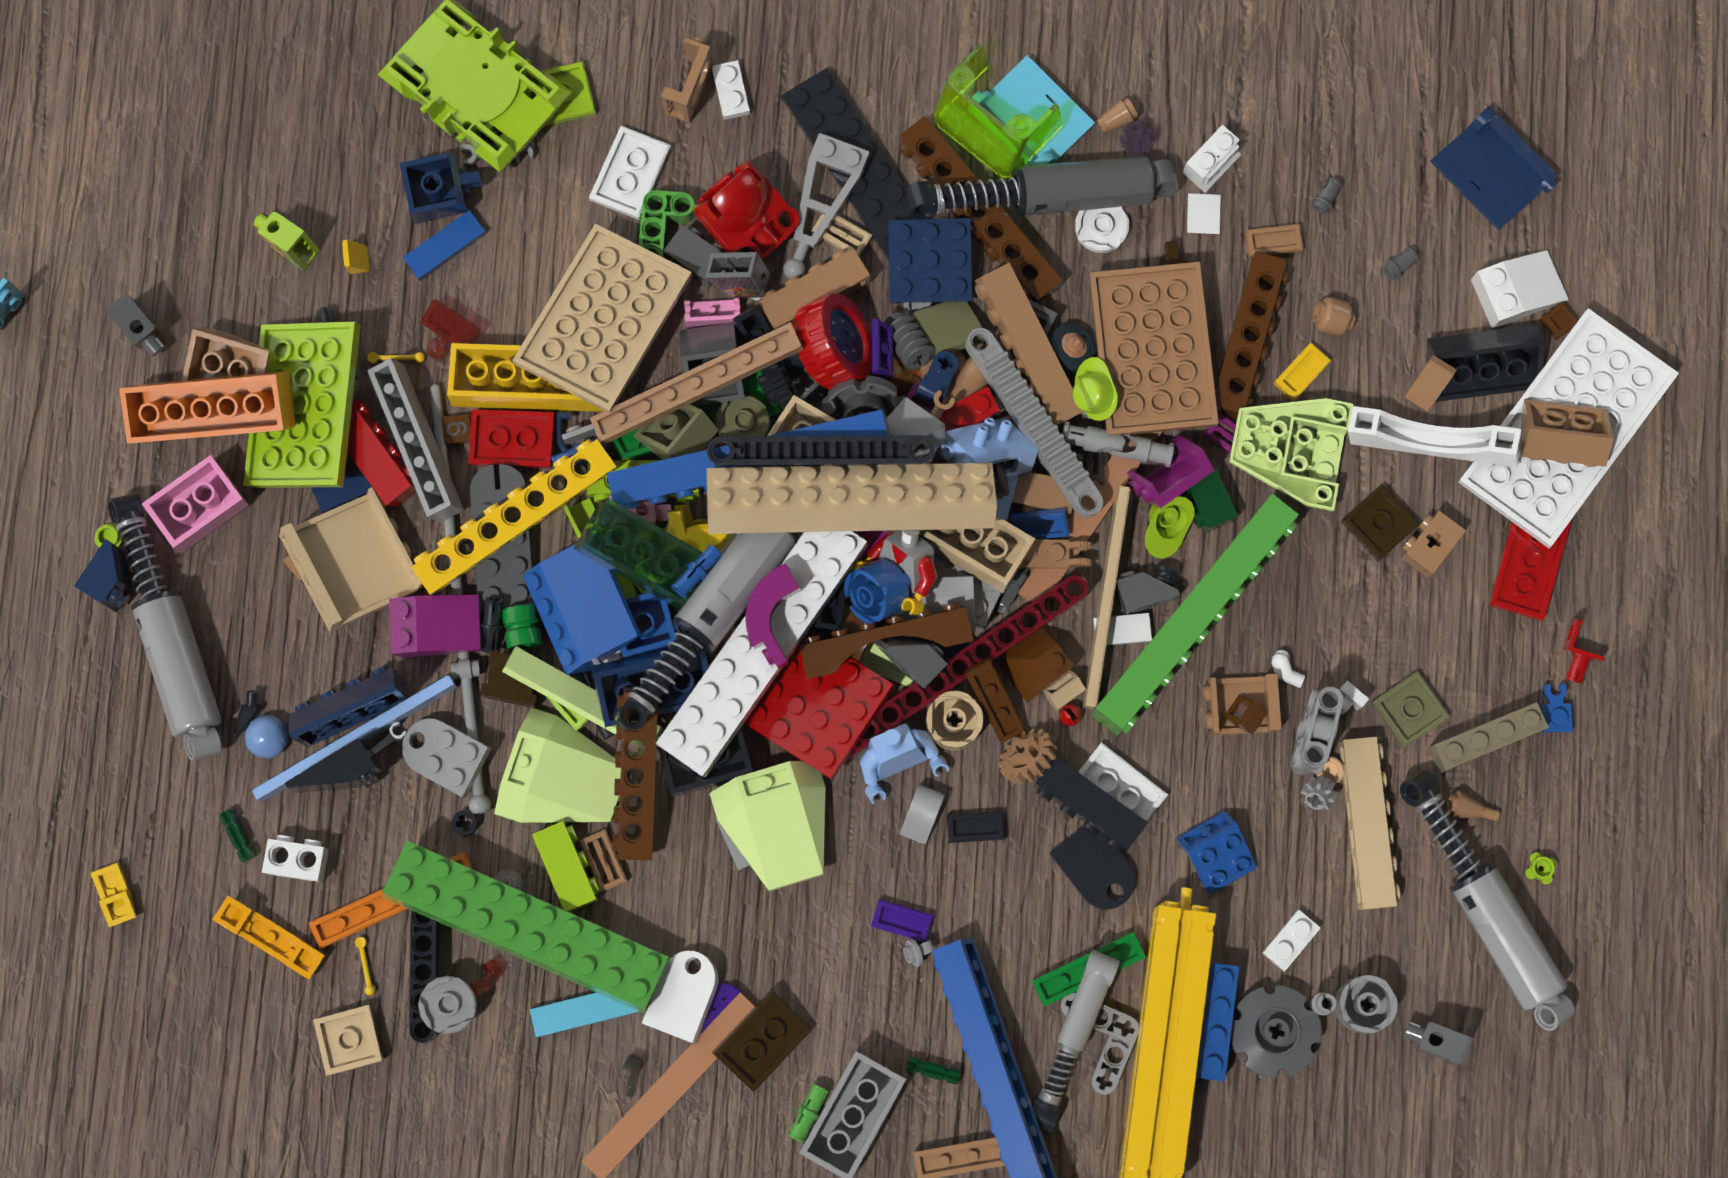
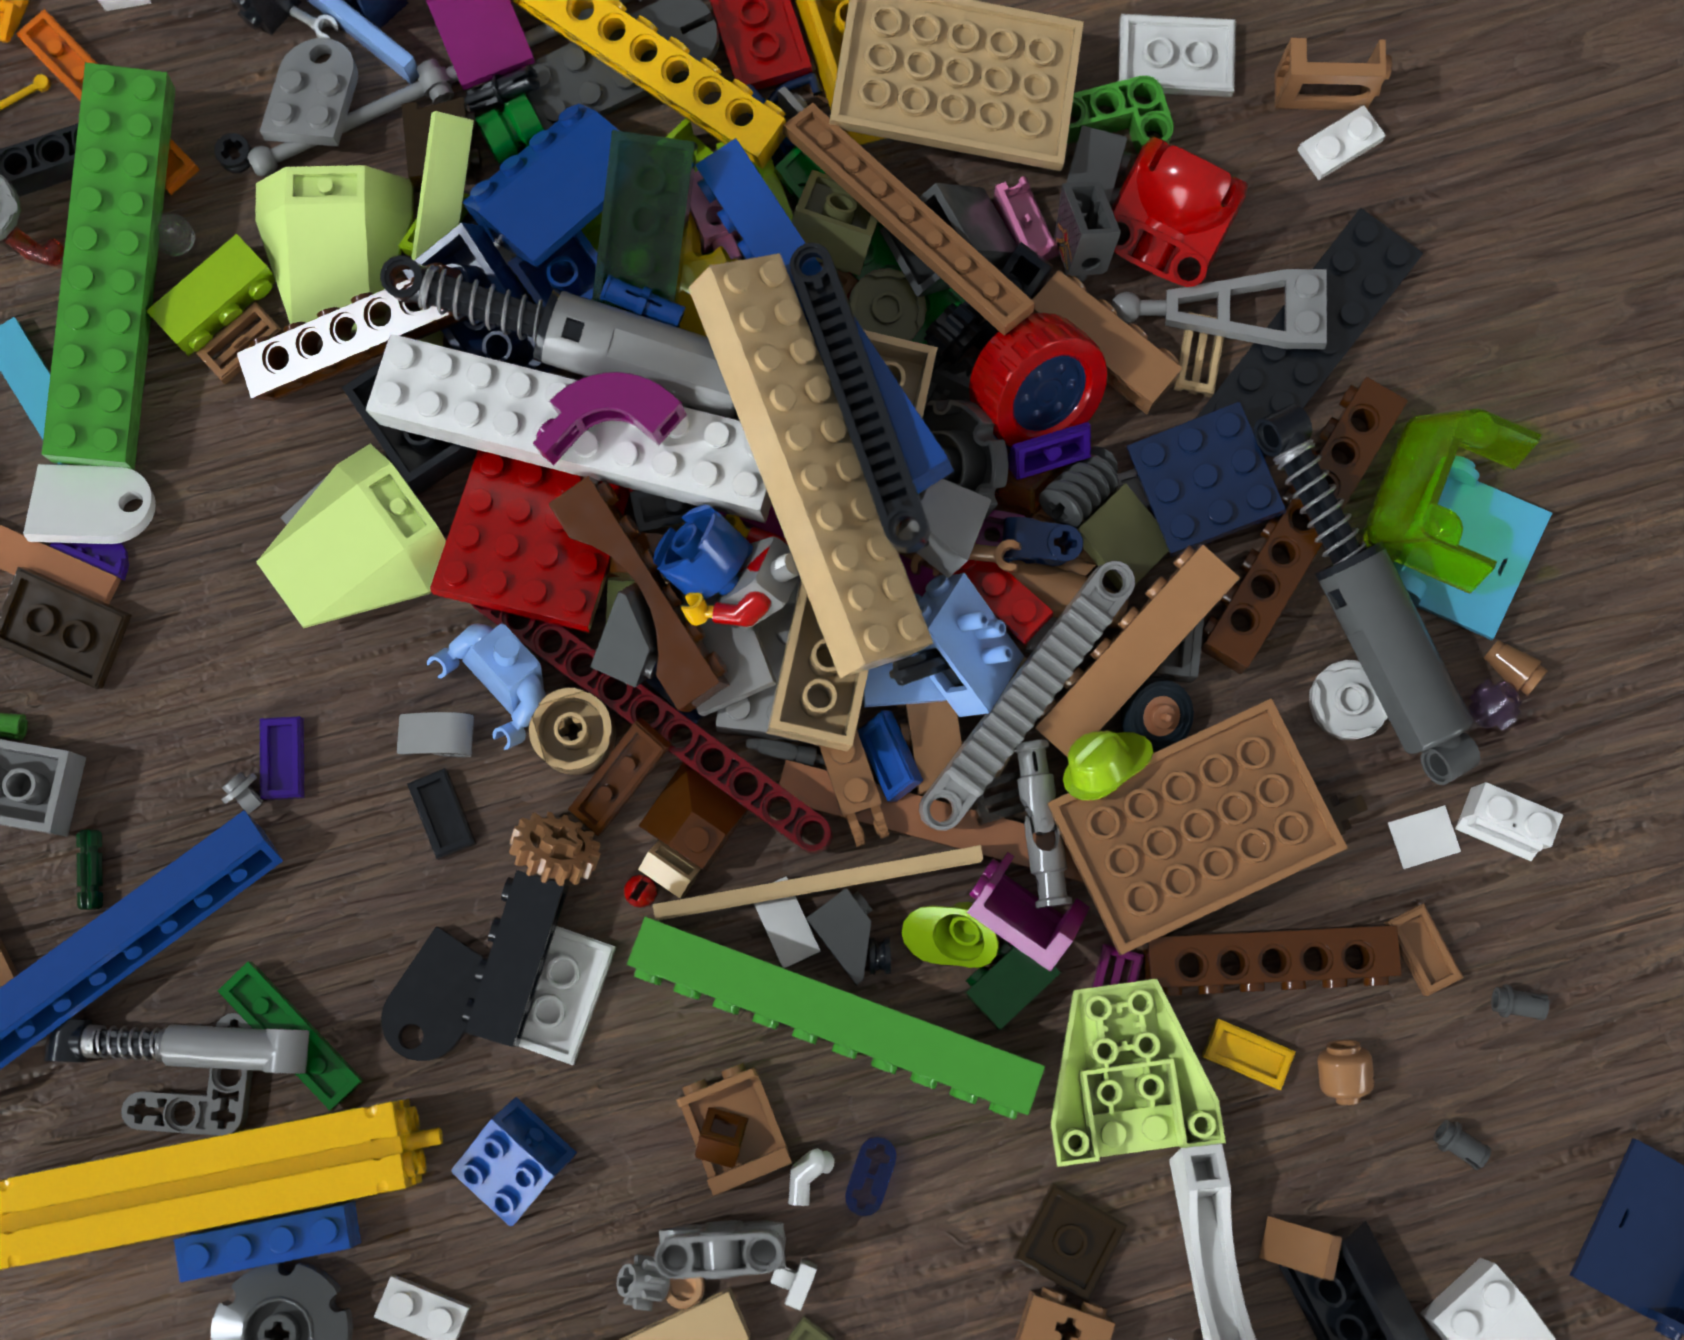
camera: 70 degrees right, 0 degrees up
(1295, 636) = (880, 1179): none -> clear blue beam

